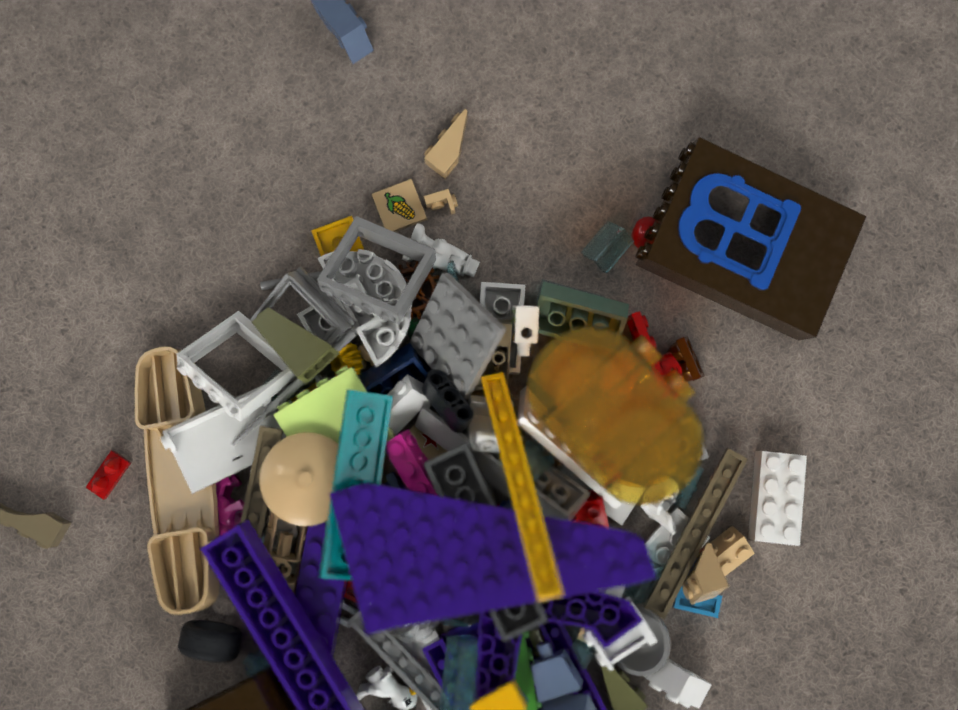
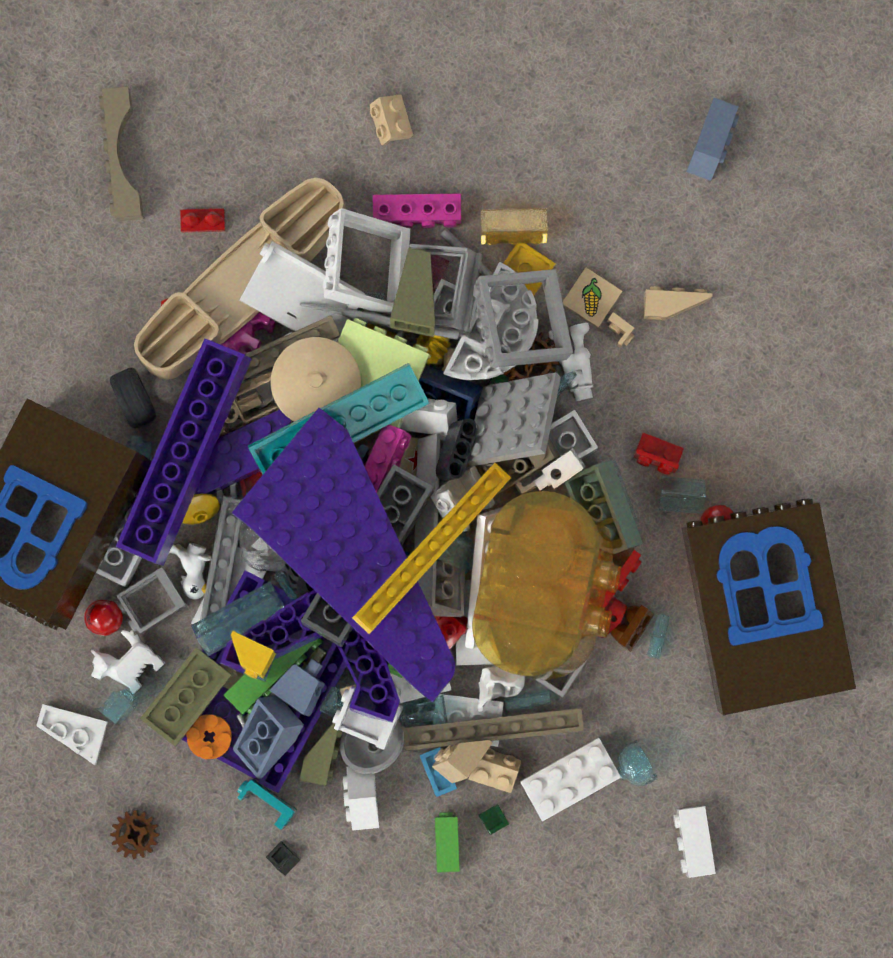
camera: 55 degrees right, 0 degrees up
(138, 264) = (390, 119): none -> tan bracket
(228, 292) = (418, 209): none -> dark pink brick
(288, 310) = (439, 269): none -> clear pink panel
(297, 226) = (514, 226): none -> clear yellow brick
(344, 647) = (201, 509): none -> yellow dish
(562, 241) = (658, 453): none -> red bracket
(708, 345) = (658, 636): none -> clear light blue axle
(761, 635) = (447, 842): none -> bright green brick
(768, 583) = (493, 819): none -> dark green panel
(803, 437) = (635, 765): none -> clear light blue cylinder
(894, 432) = (694, 841): none -> white brick

